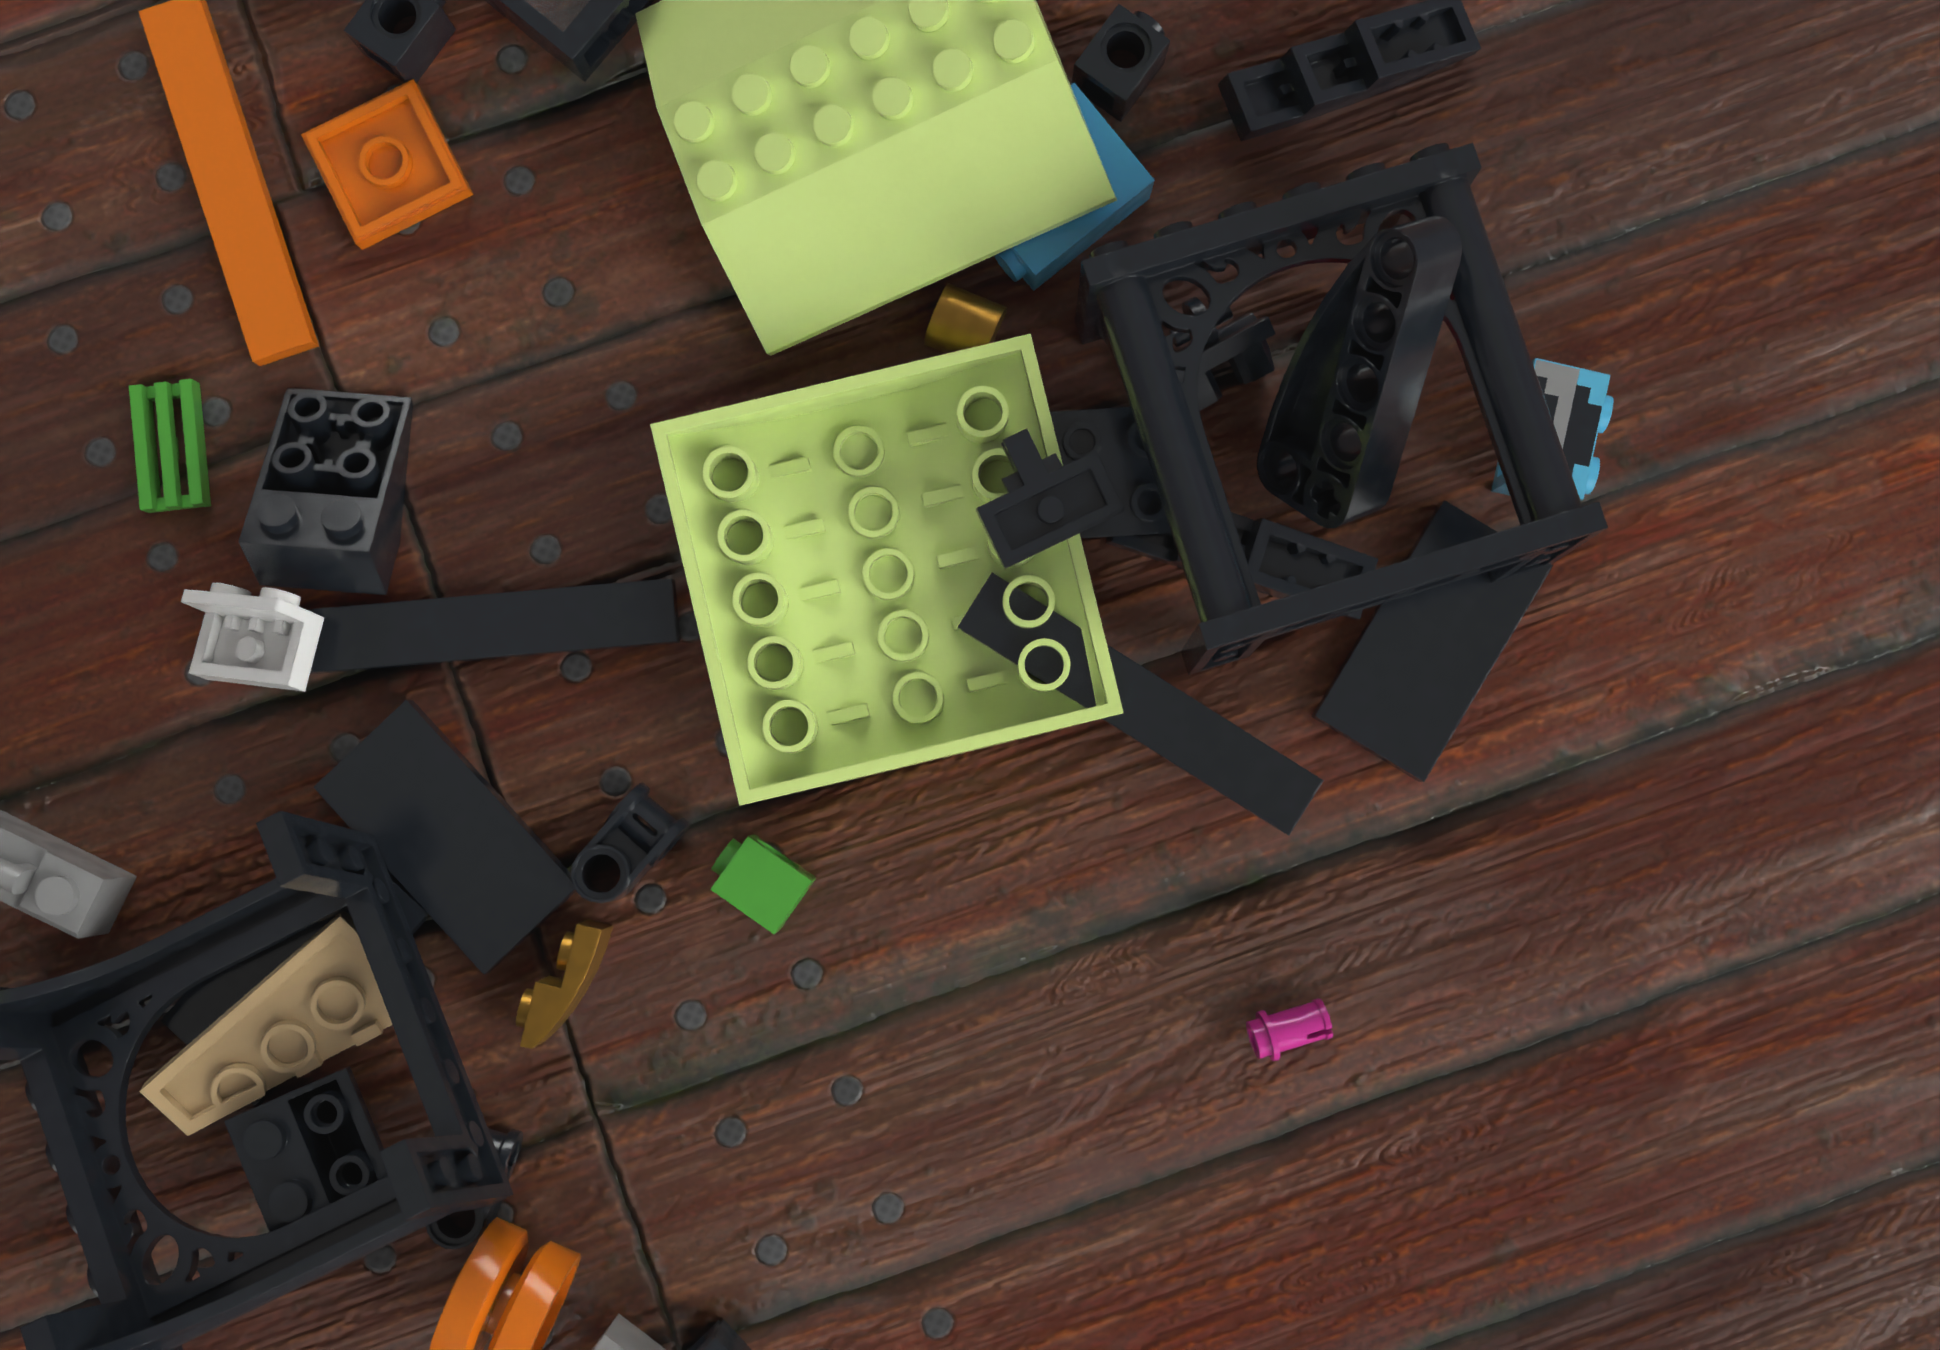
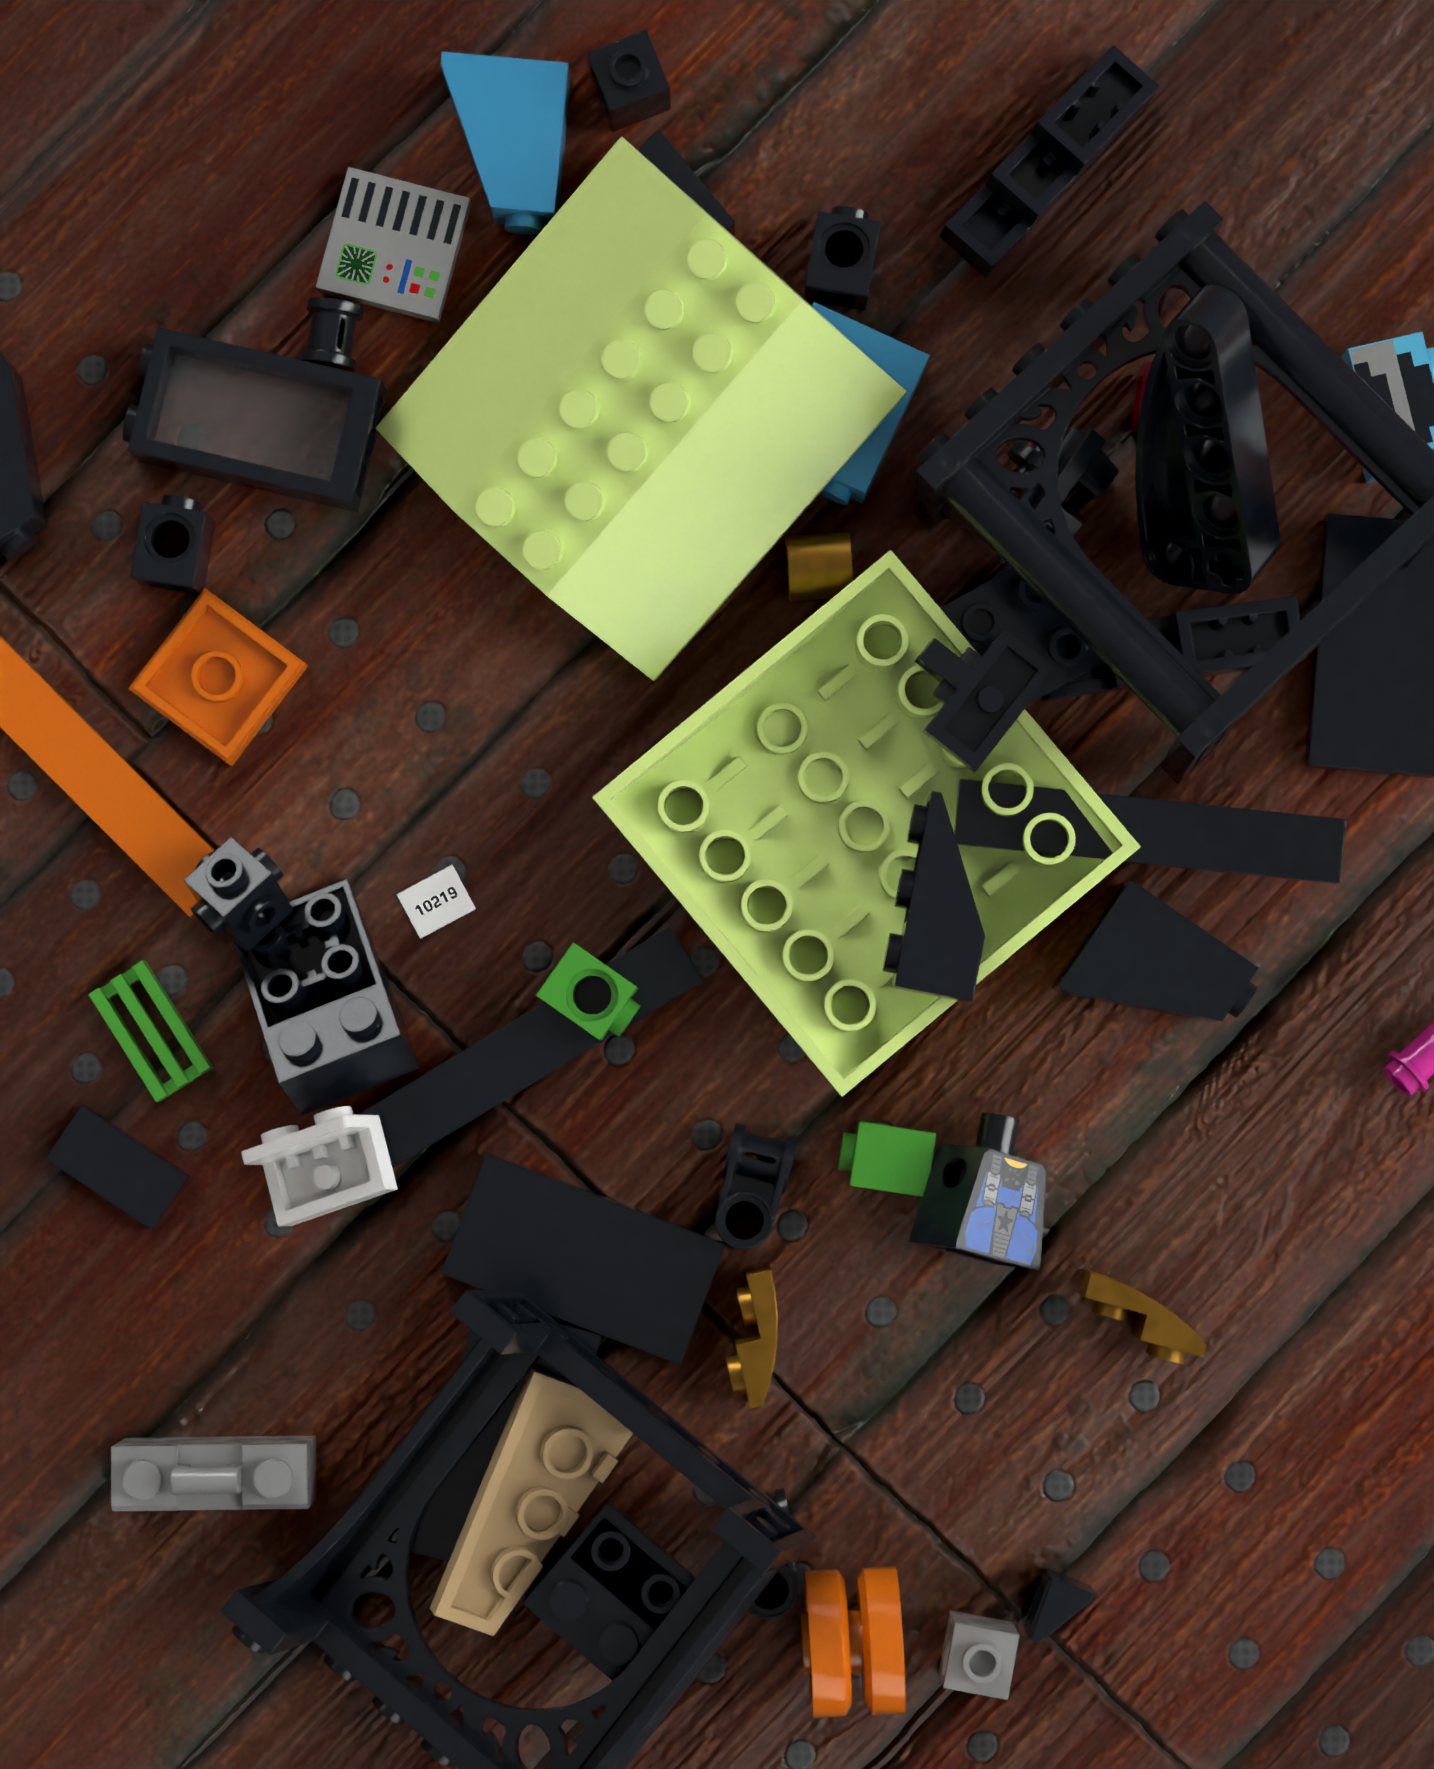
camera: 25 degrees left, 0 degrees up
(80, 551) = (118, 1167): none -> black tile
(297, 359) = (238, 894): none -> black brick
(480, 456) = (436, 901): none -> white sticker
(544, 581) = (561, 987): none -> bright green brick
(825, 962) = (984, 1200): none -> torso
(902, 693) = (941, 923): none -> black slope
(928, 1153) = (1162, 1329): none -> pearl gold slope
(1091, 825) = (1157, 962): none -> black slope

